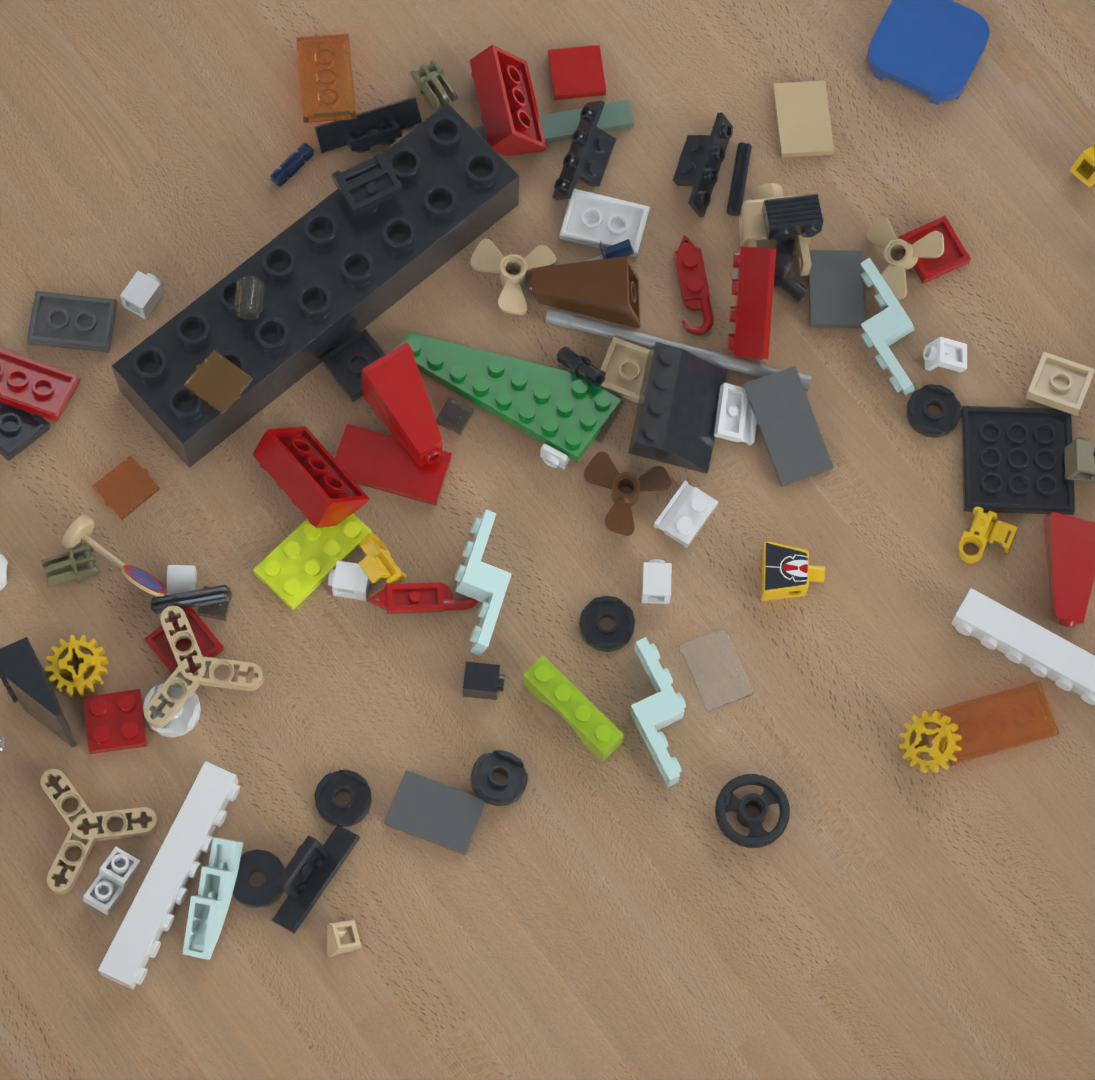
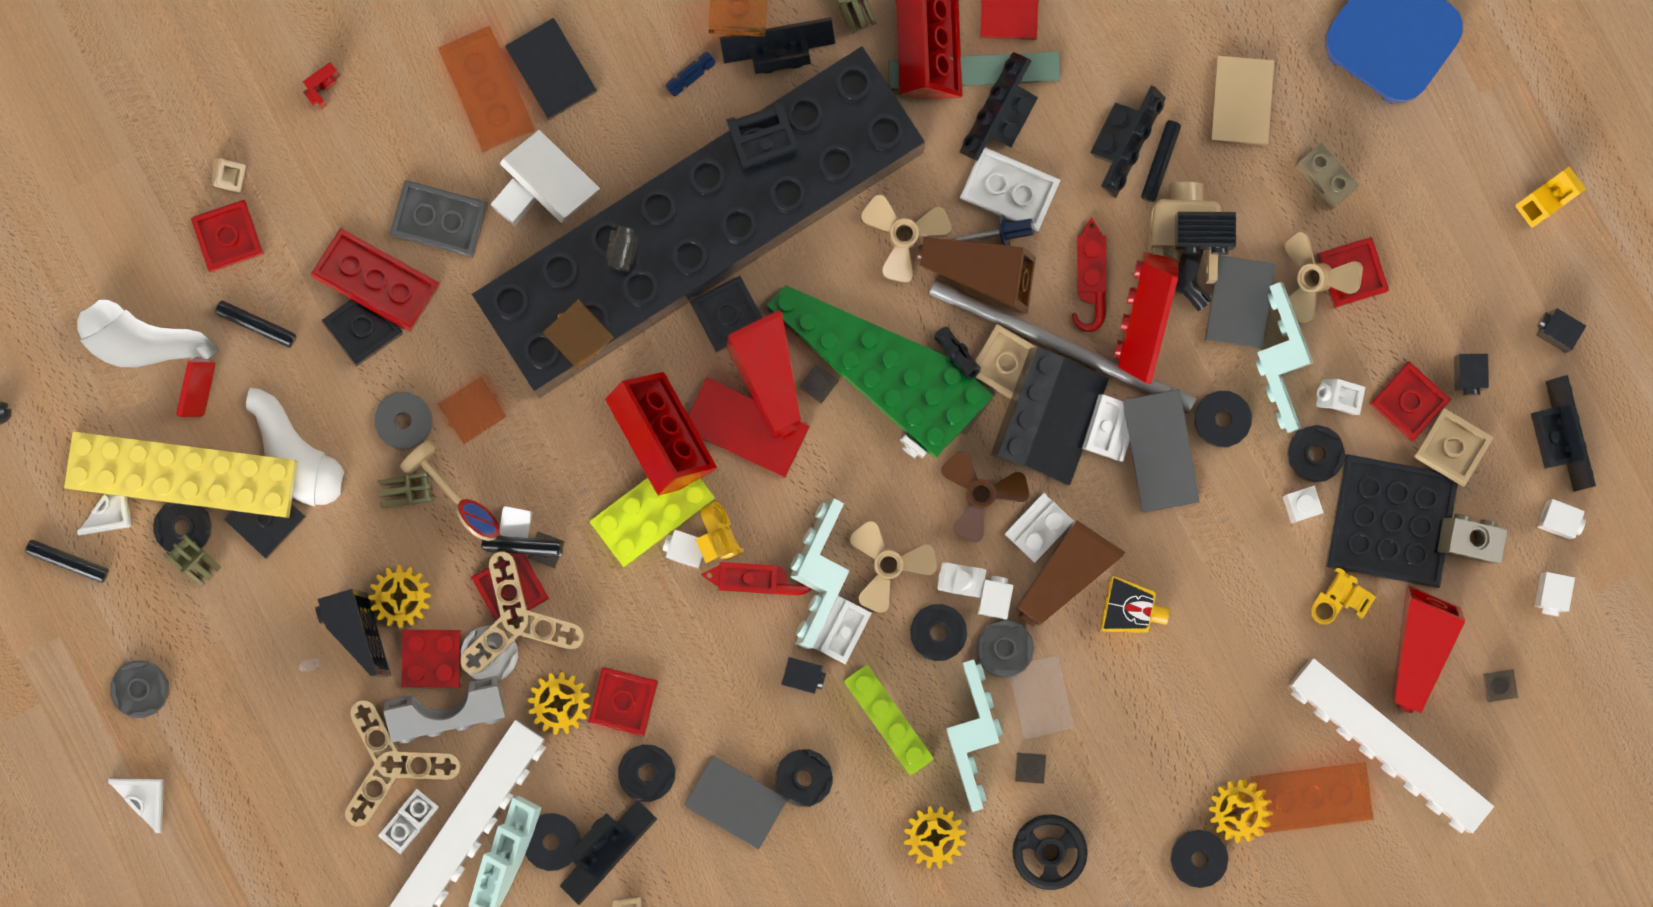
camera: 10 degrees right, 15 degrees up
(52, 492) = (386, 420): none -> dark grey tile
(99, 778) = (411, 719): none -> light grey arch
(103, 203) = (486, 89): none -> clear orange tile
(161, 178) = (551, 68): none -> black tile
(172, 266) = (550, 176): none -> white tile
(238, 748) = (555, 690): none -> yellow gear
(310, 734) = (623, 701): none -> red tile
(512, 633) = (842, 629): none -> white plate
(528, 549) = (877, 592): none -> tan piece
(621, 569) = (961, 580): none -> white bracket
(649, 809) = (932, 823): none -> yellow gear
(674, 628) = (1005, 648): none -> dark grey tile
(718, 736) = (1030, 767): none -> clear smoke plate
(725, 540) = (1071, 568): none -> reddish brown slope
(844, 378) = (1213, 433): none -> black tile
(893, 168) = (1326, 176): none -> dark tan brick
(903, 781) = (1216, 858): none -> black tile
(930, 454) = (1303, 504): none -> white brick
(1011, 352) = (1410, 401): none -> red tile
(1061, 317) = (1471, 373): none -> black brick

